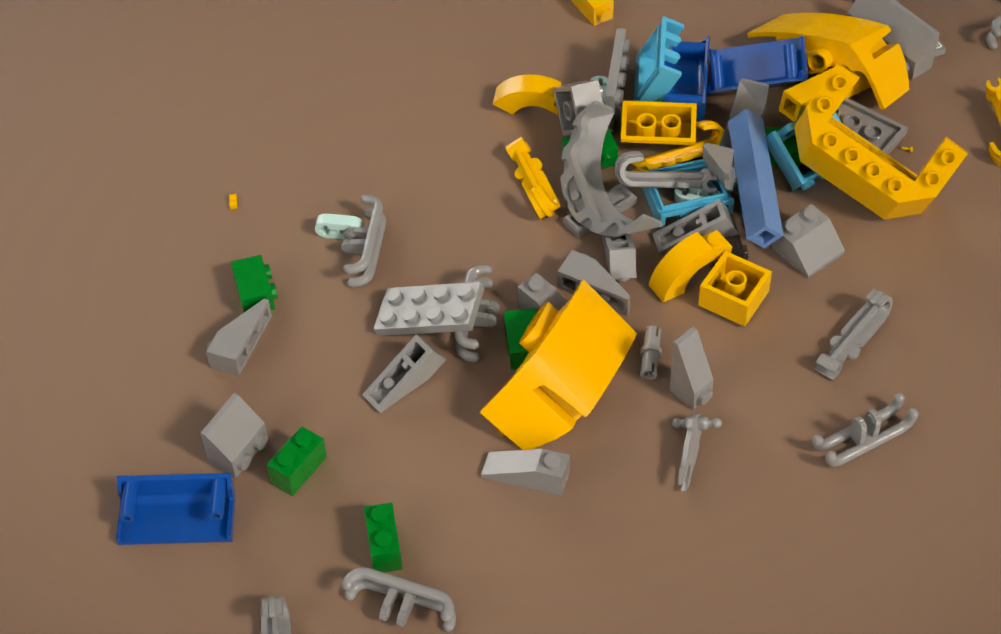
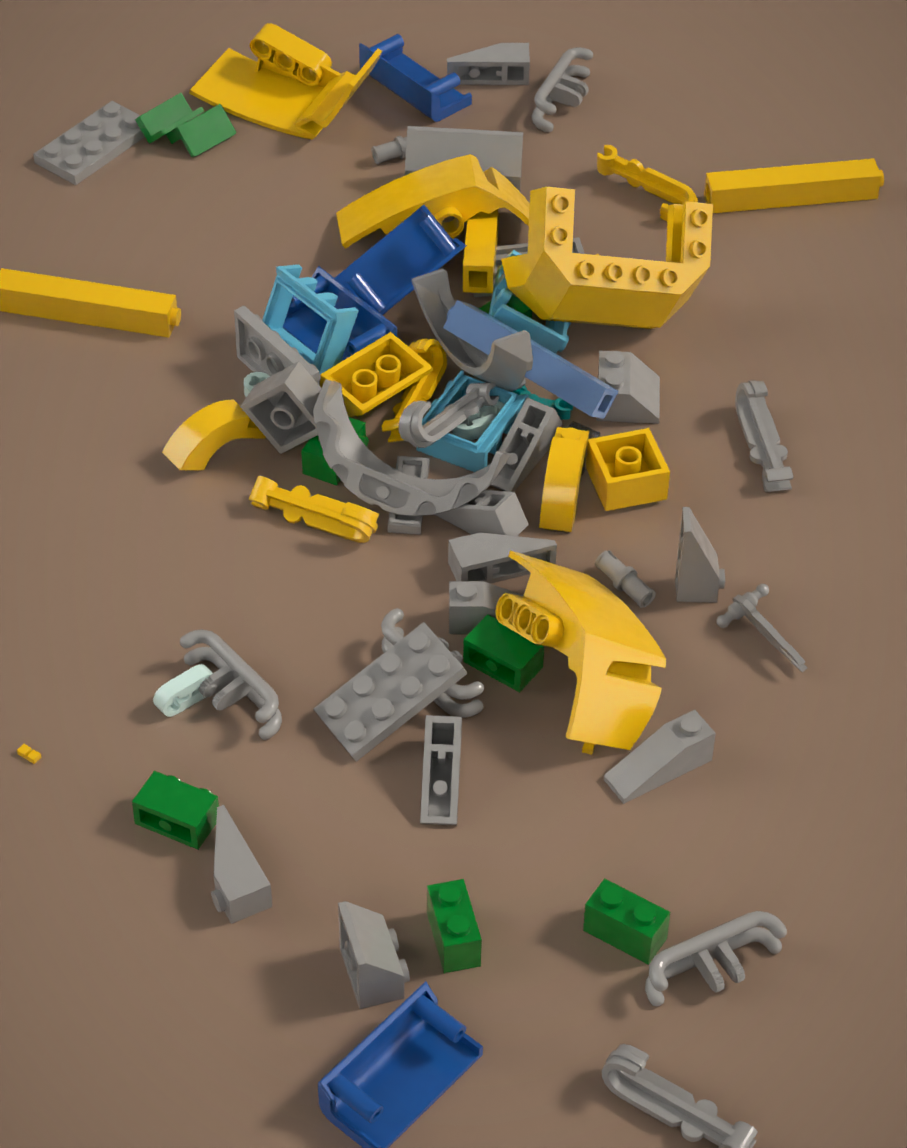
camera: 50 degrees left, 5 degrees down
(865, 433) = (876, 504): light grey piece -> none

